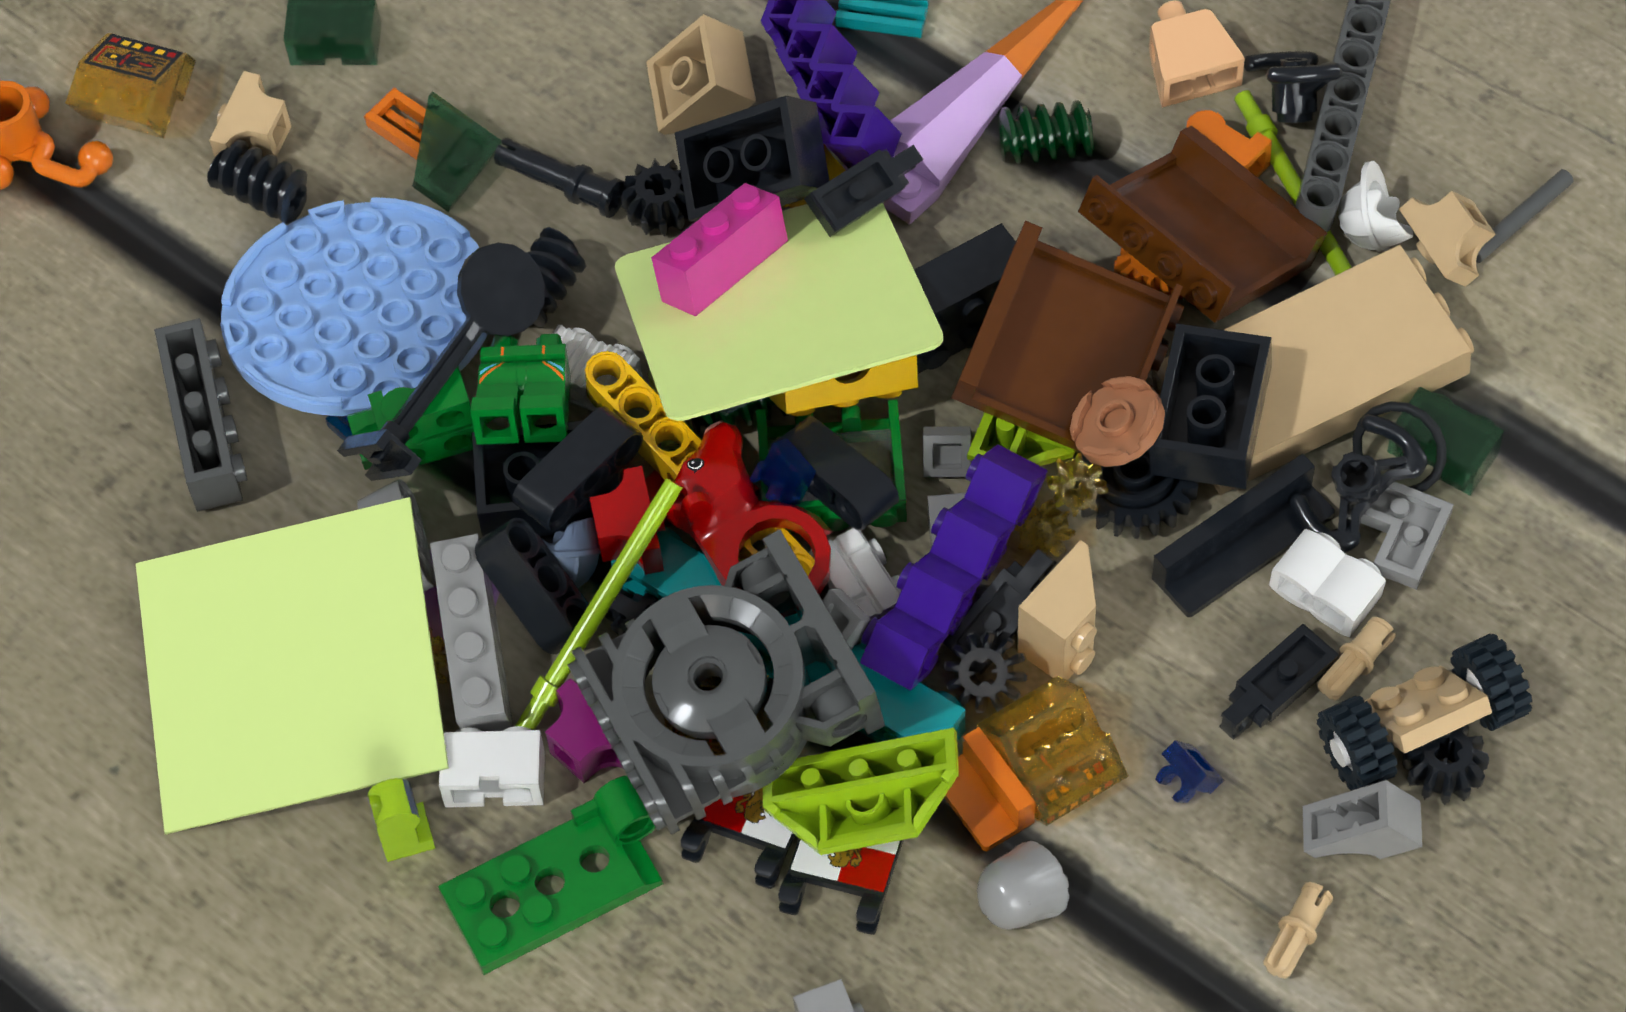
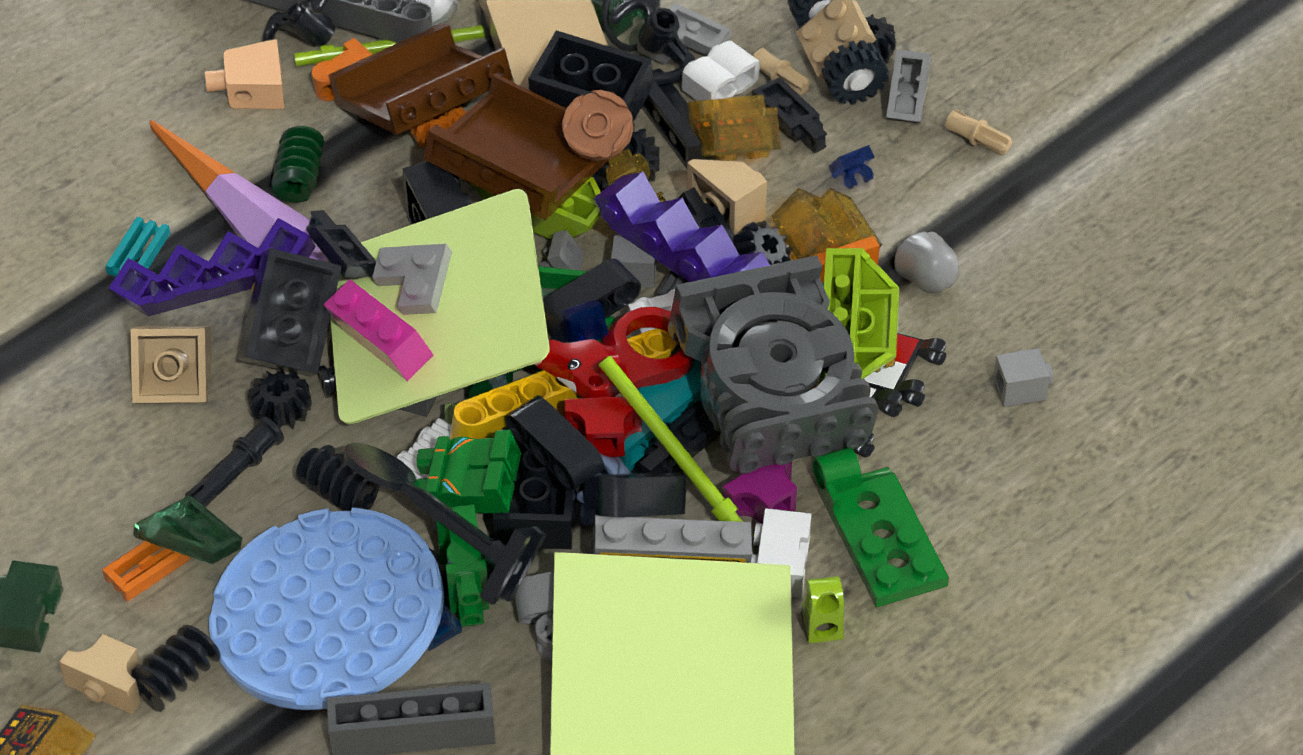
camera: 85 degrees left, 10 degrees down
(822, 275) = (419, 270): none -> light grey plate
(1221, 608) = (735, 127): none -> clear yellow piece

